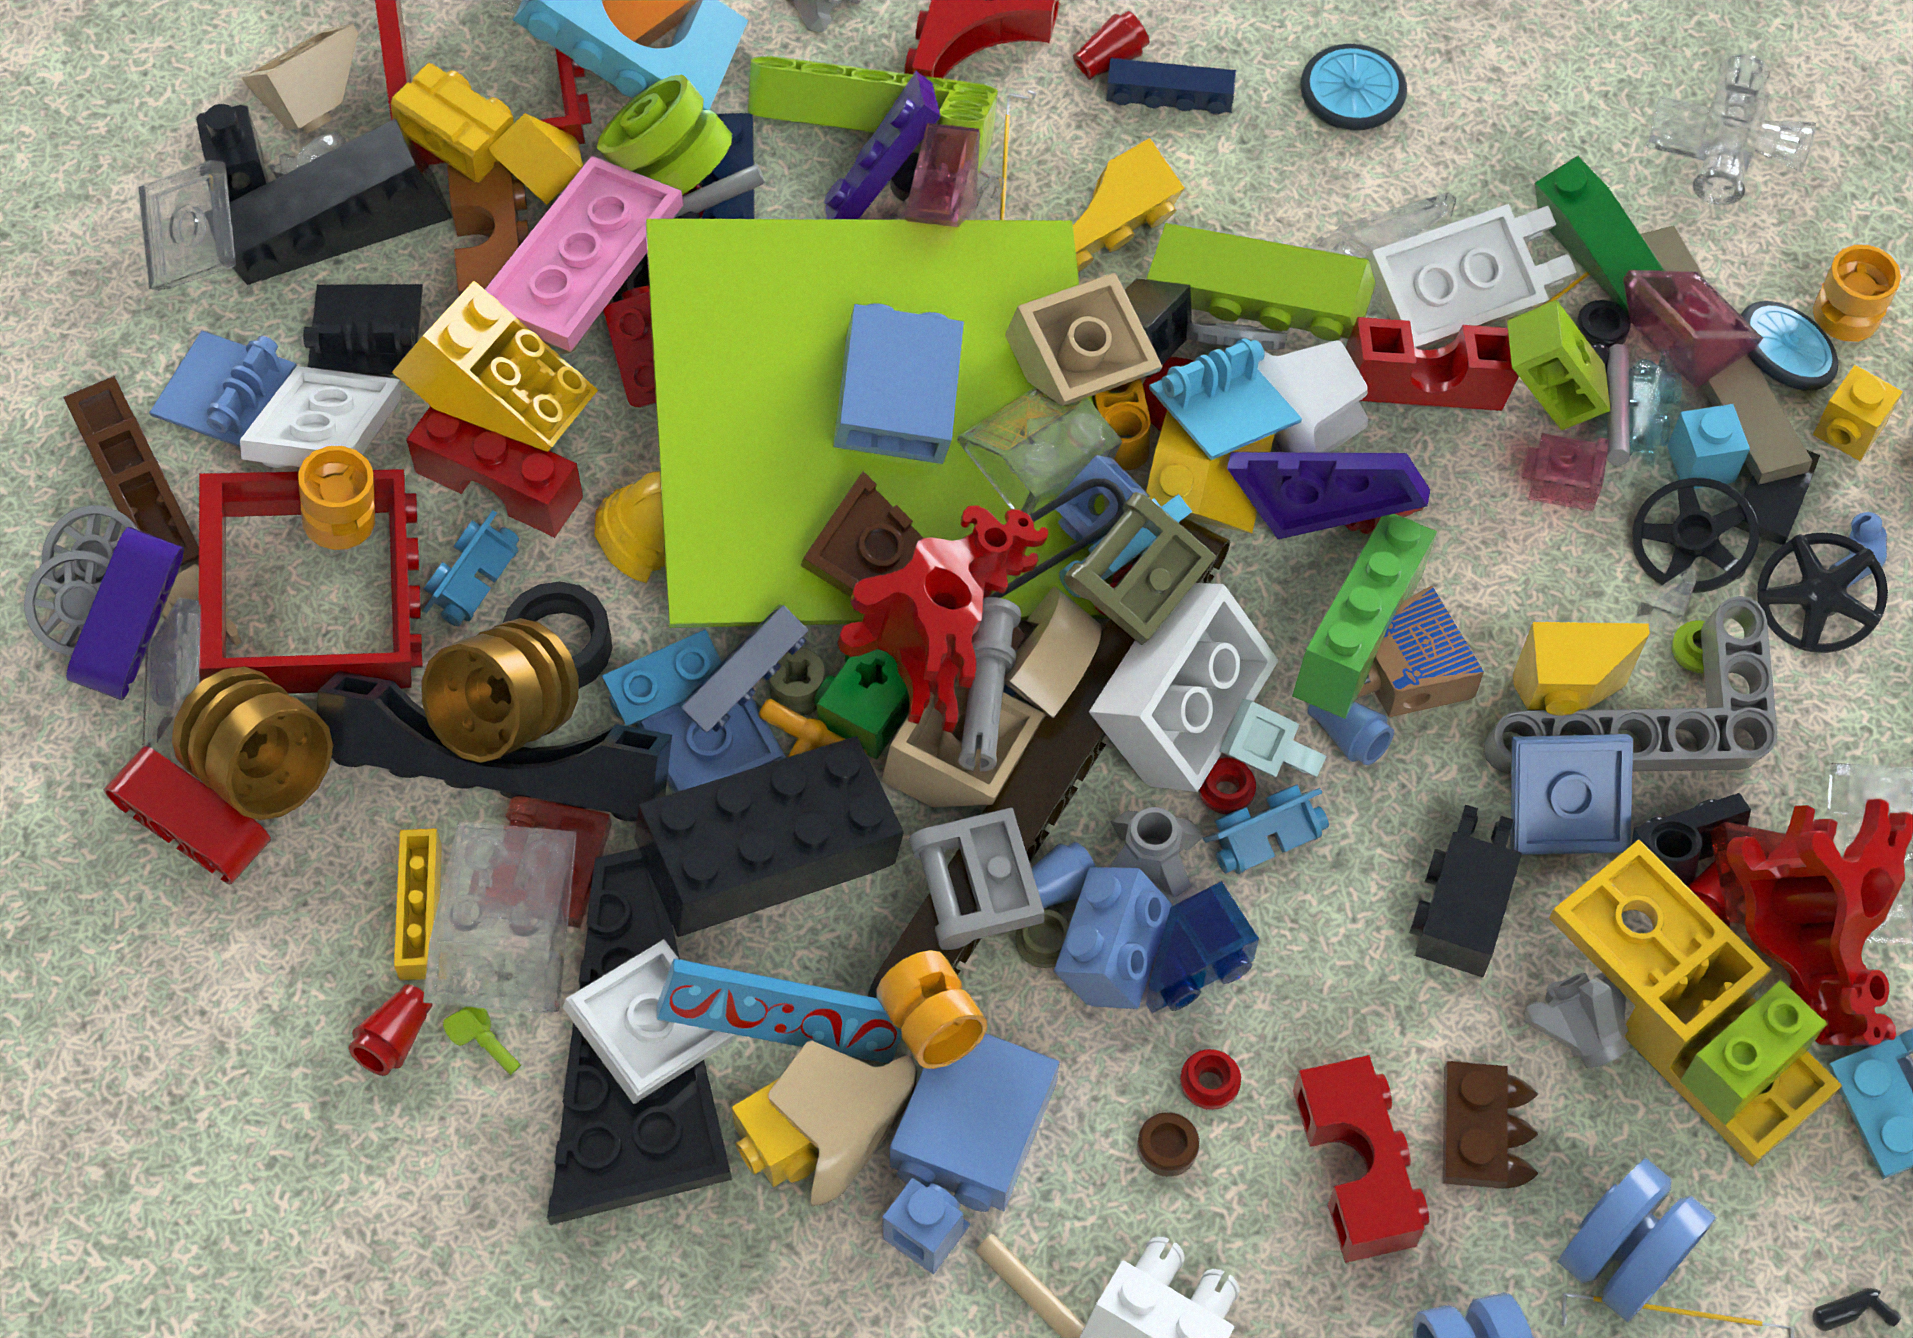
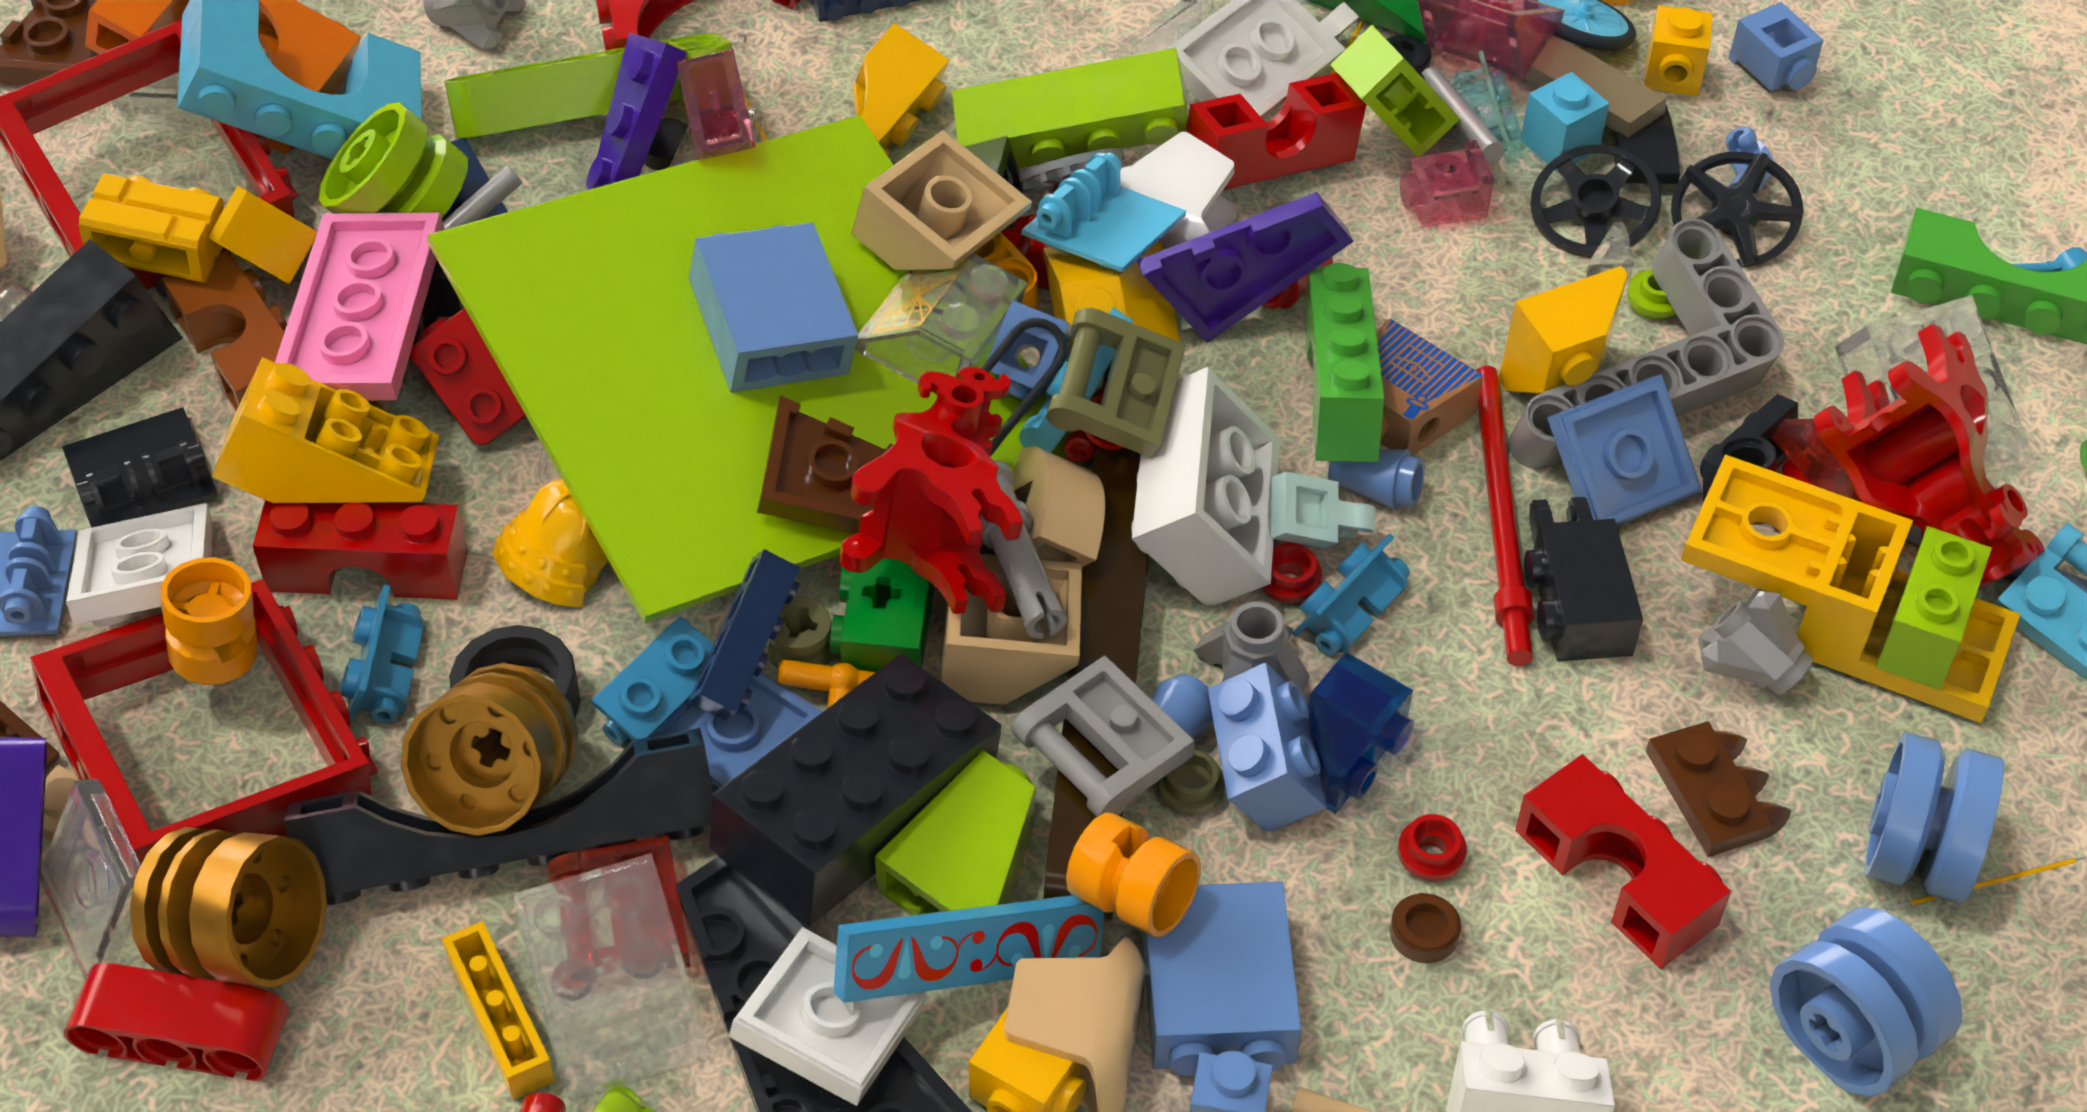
camera: 25 degrees left, 10 degrees down
(833, 920) = (962, 843): none -> lime slope
(1403, 887) = (1512, 601): none -> red bar

